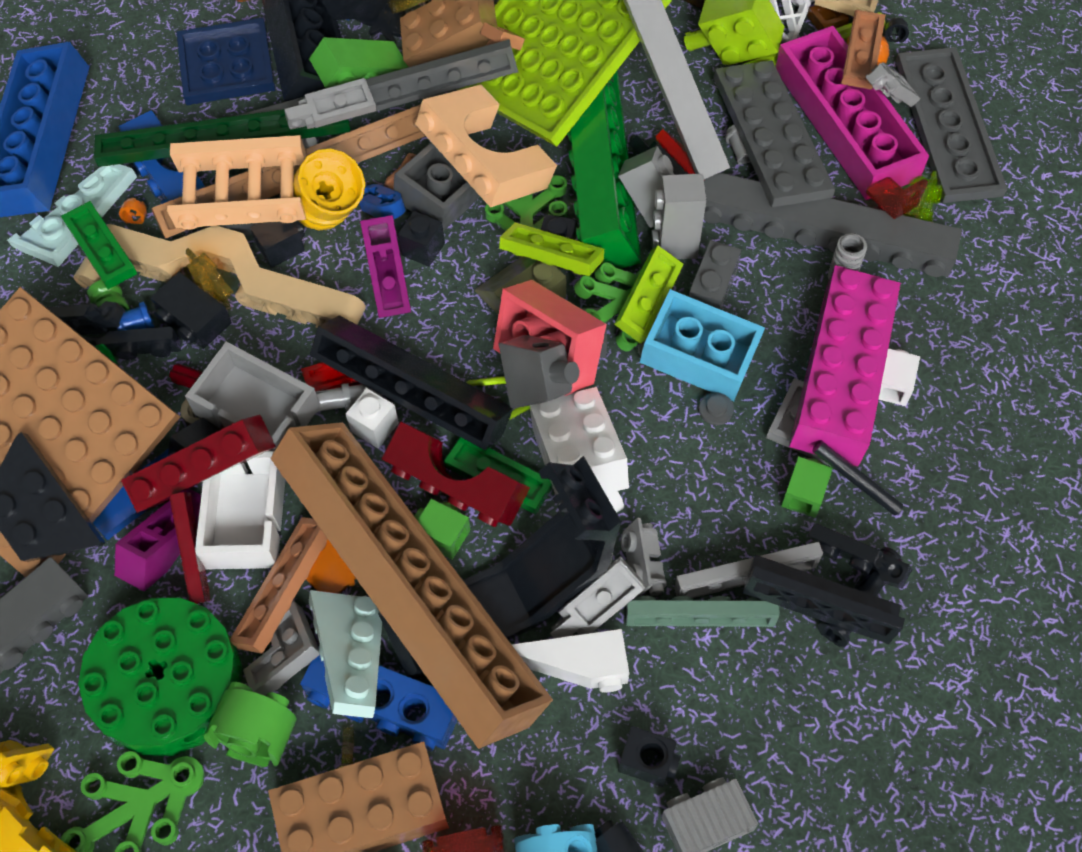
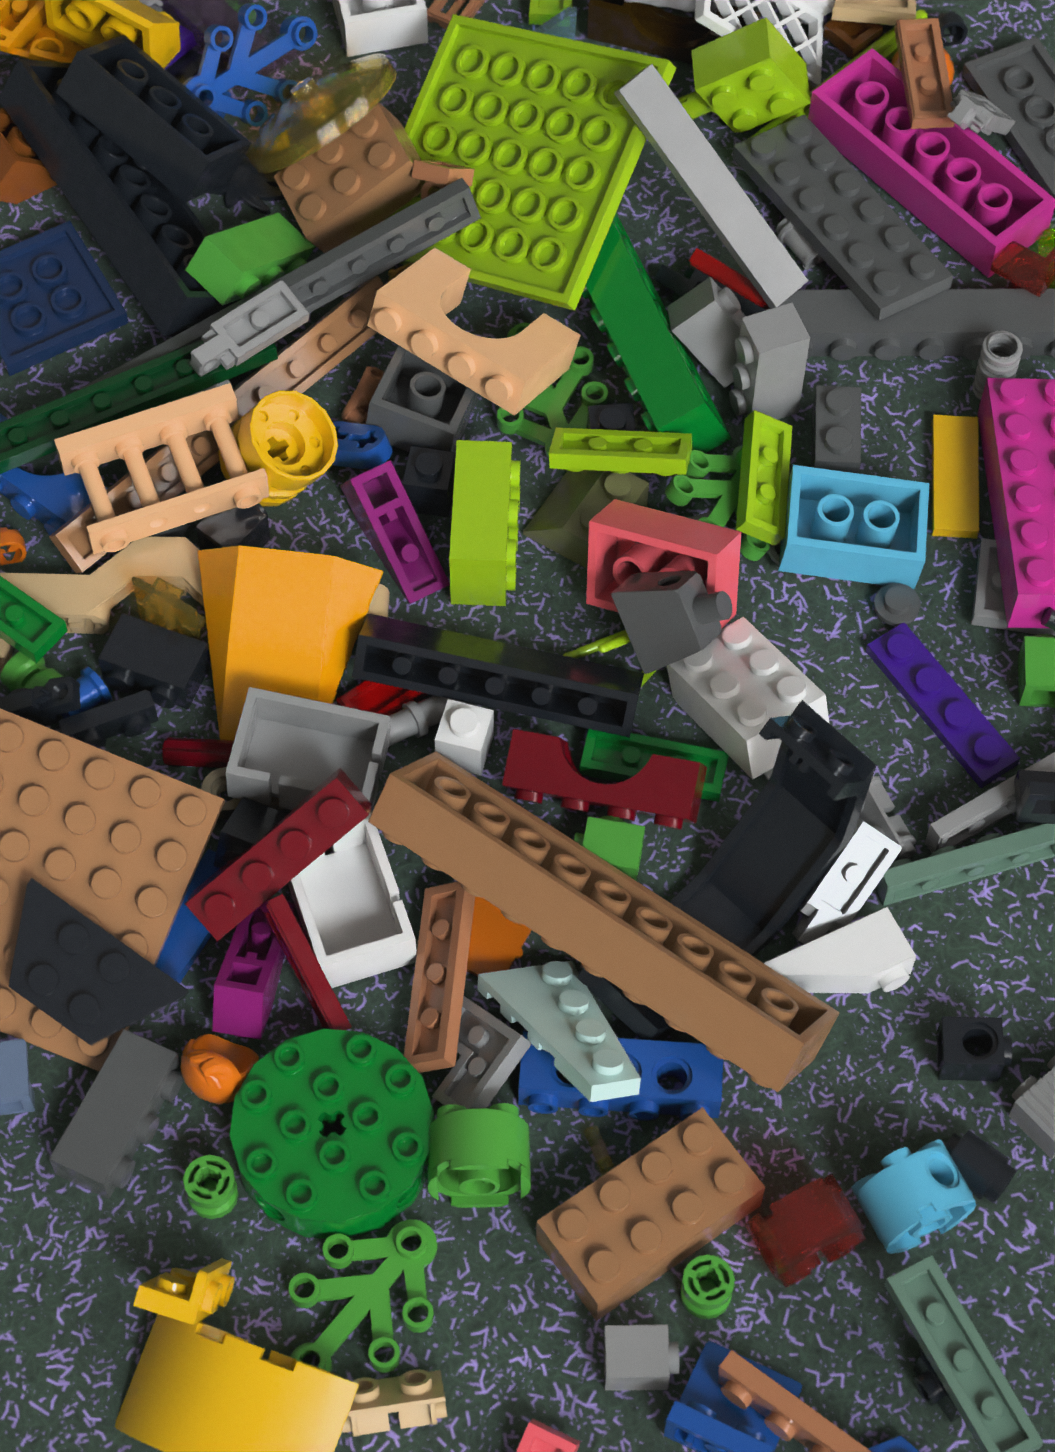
camera: 20 degrees left, 0 degrees up
(68, 695) = (214, 1197): none -> bright green wheel
(102, 599) = (216, 1067): none -> orange hair
(279, 305) = (280, 623): none -> light orange wedge
(441, 274) = (484, 523): none -> lime brick
(724, 491) = (942, 705): none -> dark purple plate
(792, 330) = (955, 476): none -> yellow tile

